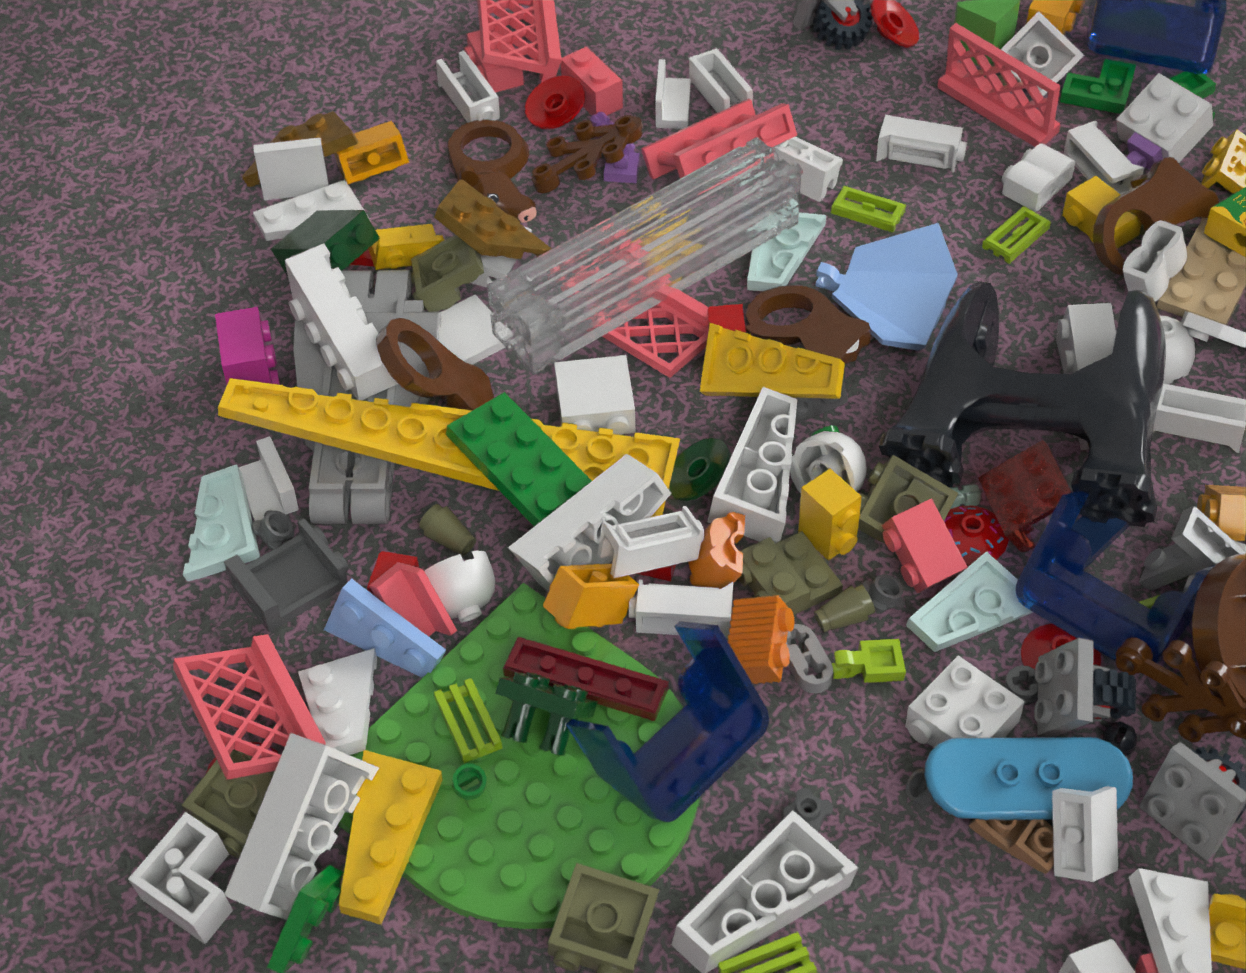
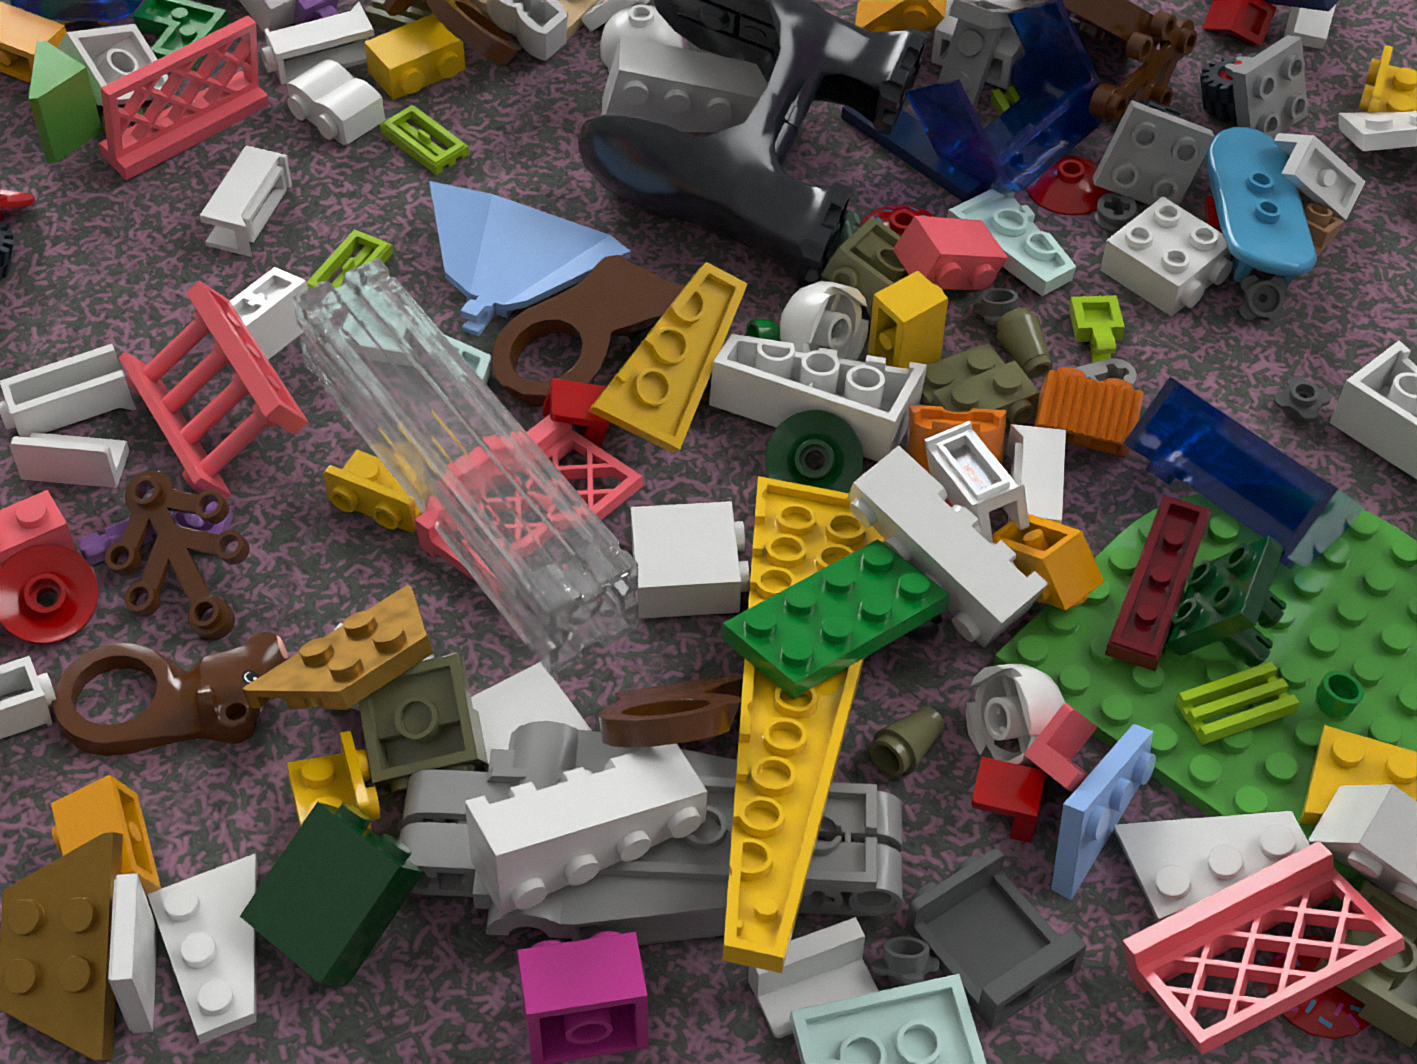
camera: 90 degrees left, 0 degrees up
(1025, 492) = (885, 153): clear red bracket -> none

